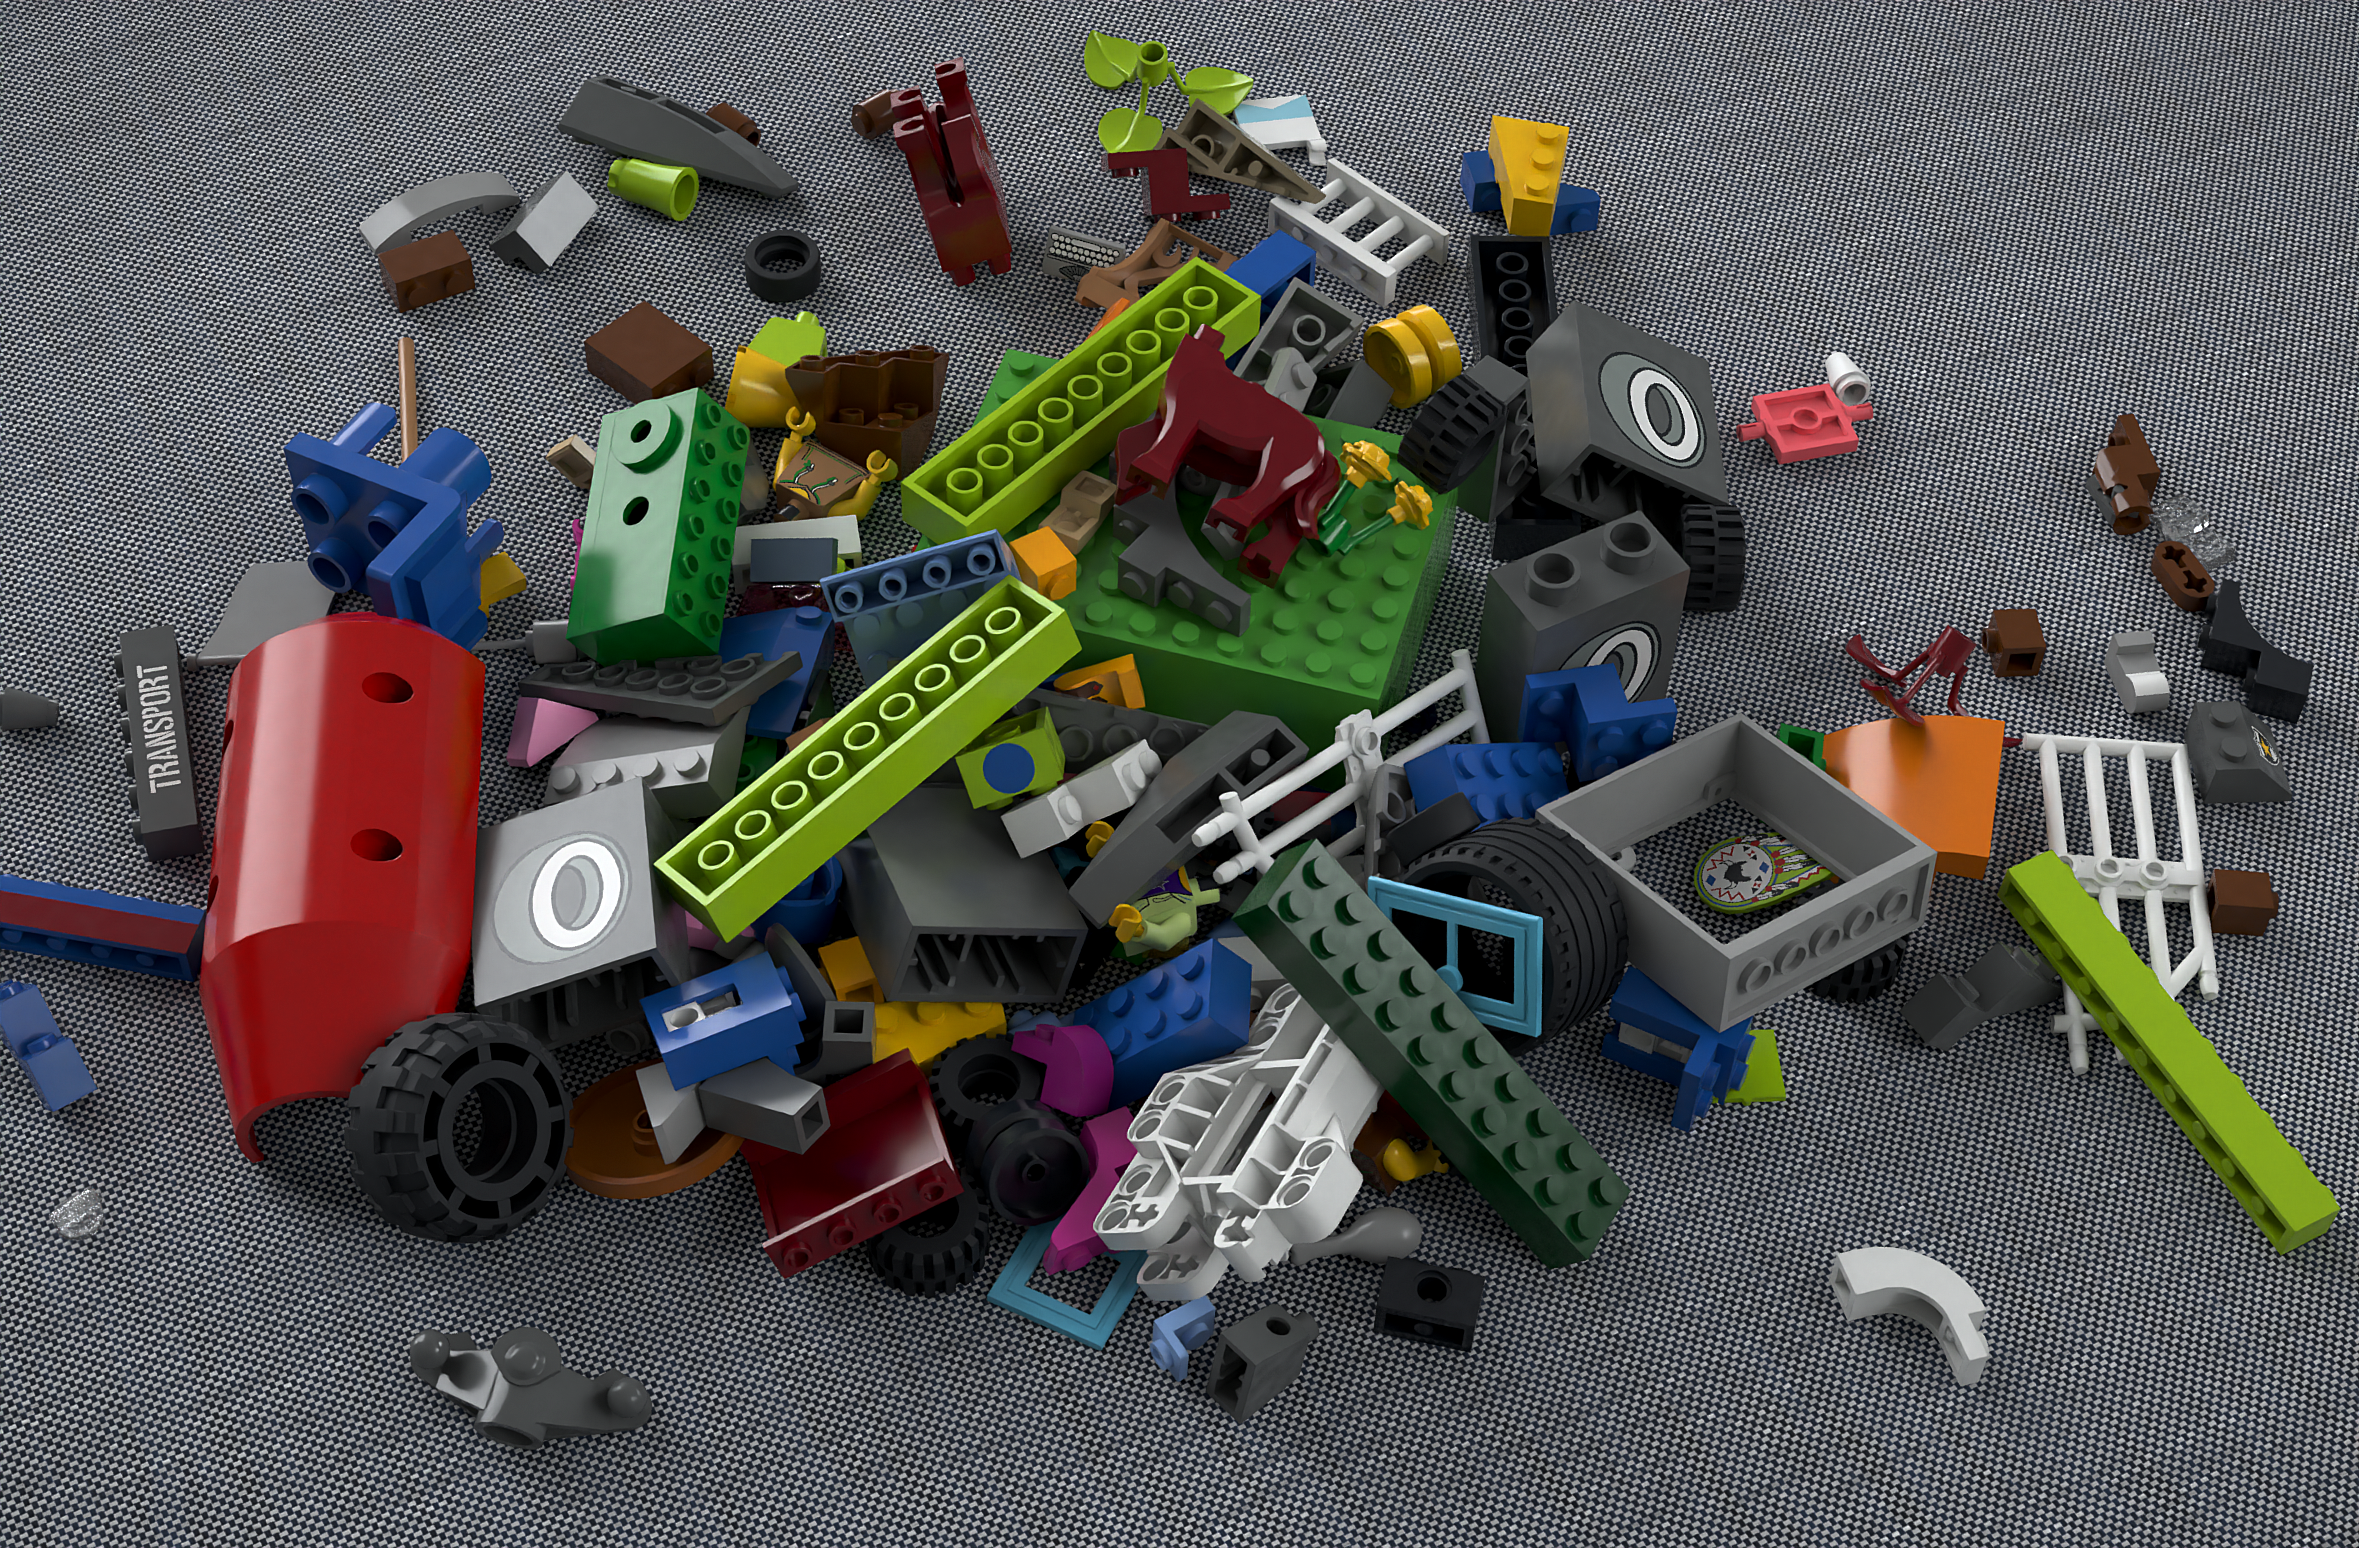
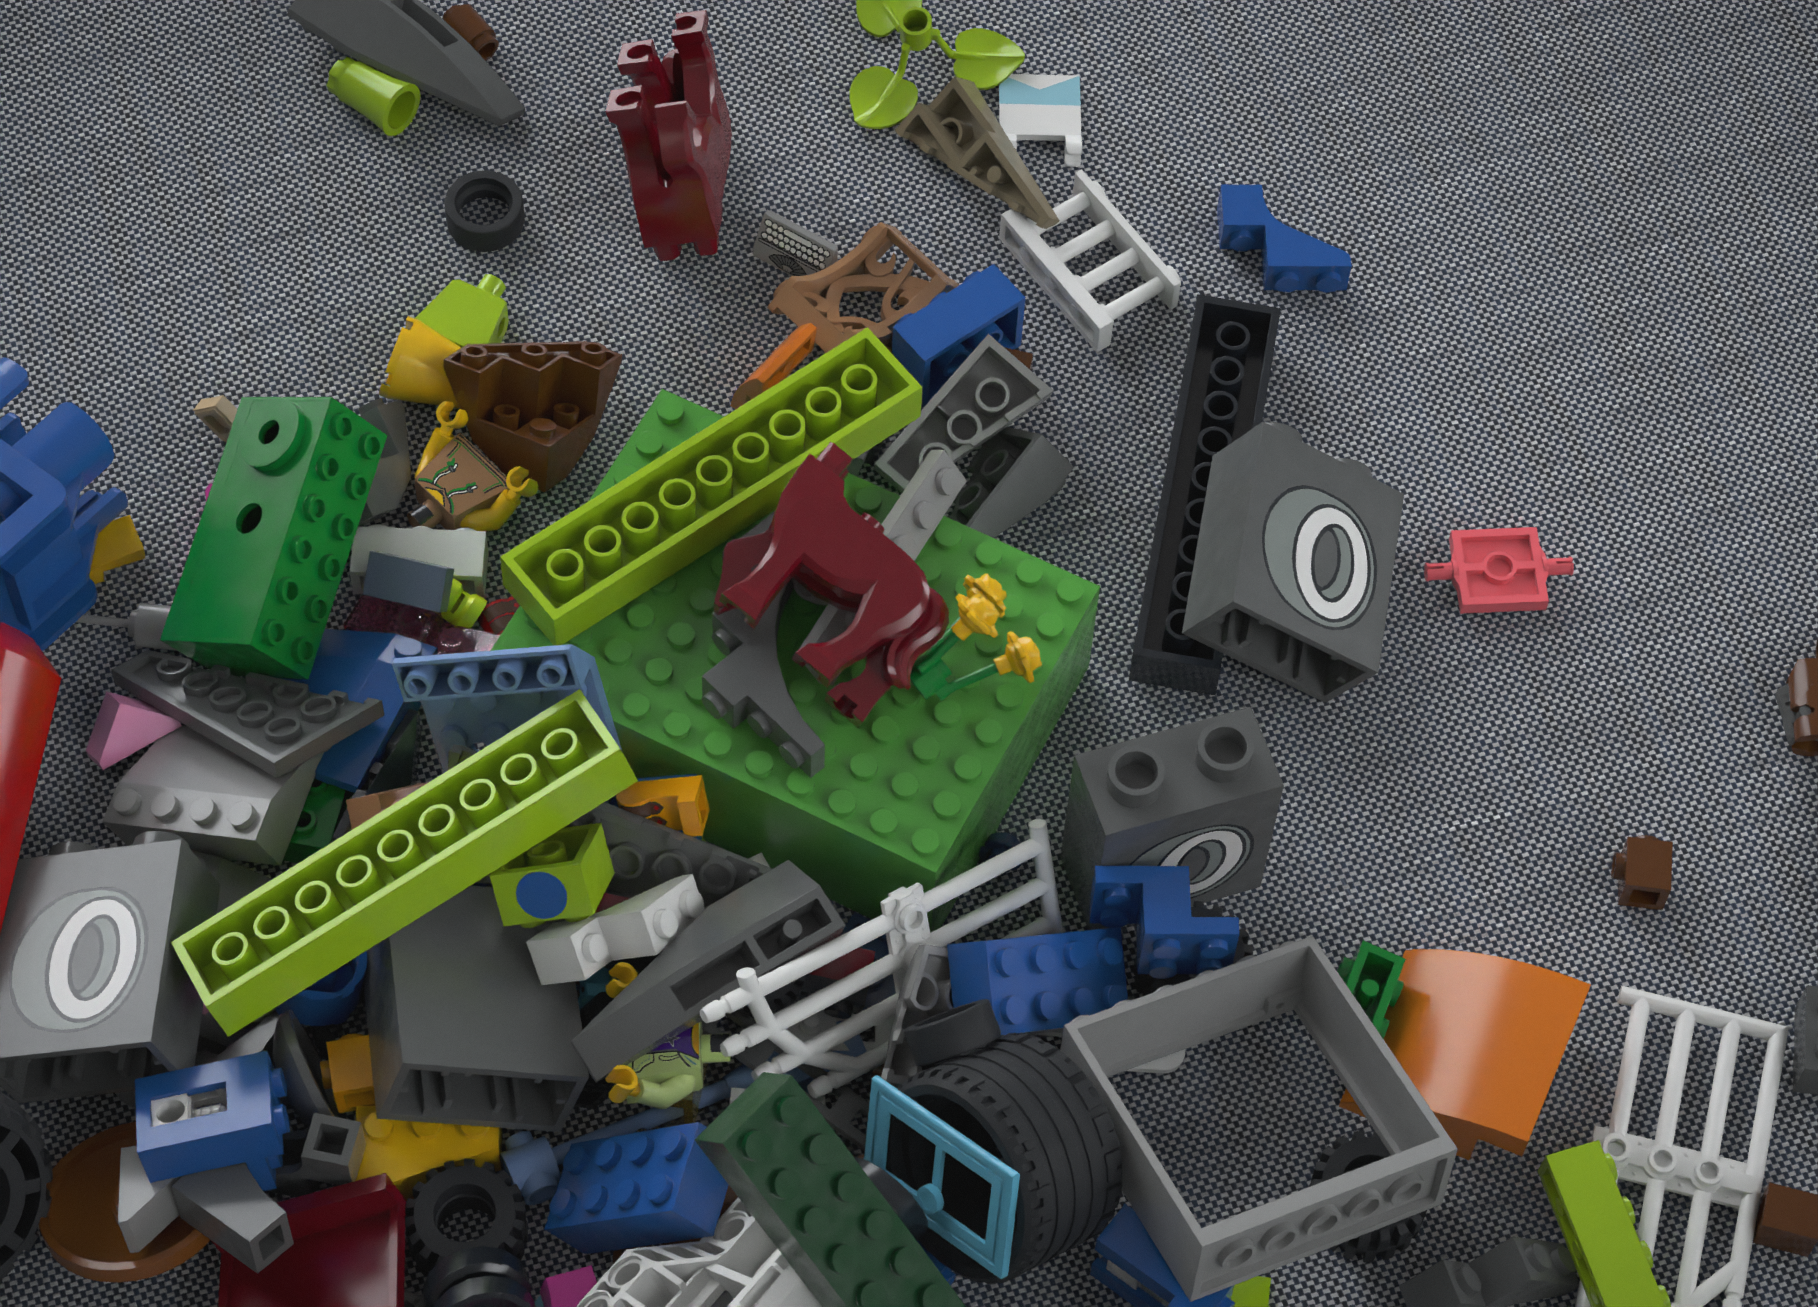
camera: 10 degrees right, 10 degrees up
(407, 396) = (72, 325): medium nougat bar -> none
(426, 271) = (122, 162): reddish brown brick -> none
(433, 201) = (150, 79): light grey slope -> none
(546, 223) = (254, 123): piece -> none
(648, 355) = (324, 304): reddish brown brick -> none
(874, 115) = (623, 30): reddish brown brick -> none
(1045, 563) = (628, 668): light orange brick -> none
(1077, 1069) = (548, 1220): magenta brick -> none
(1081, 510) = (683, 606): tan slope -> none
(1165, 184) = (894, 179): dark red bracket -> none
(1413, 354) = (1101, 431): yellow wheel -> none
(1452, 434) = (1078, 585): black tyre -> none
(1507, 466) = (1136, 576): dark grey wedge -> none
(1528, 171) = (1280, 227): yellow wedge -> none
(1715, 550) = (1344, 727): black tyre -> none
(1755, 873) = (1296, 1100): shield -> none
(1847, 379) = (1557, 524): white cone -> none
(1943, 656) = (1551, 897): dark red plant -> none
(2137, 672) = (1763, 930): light grey leg -> none

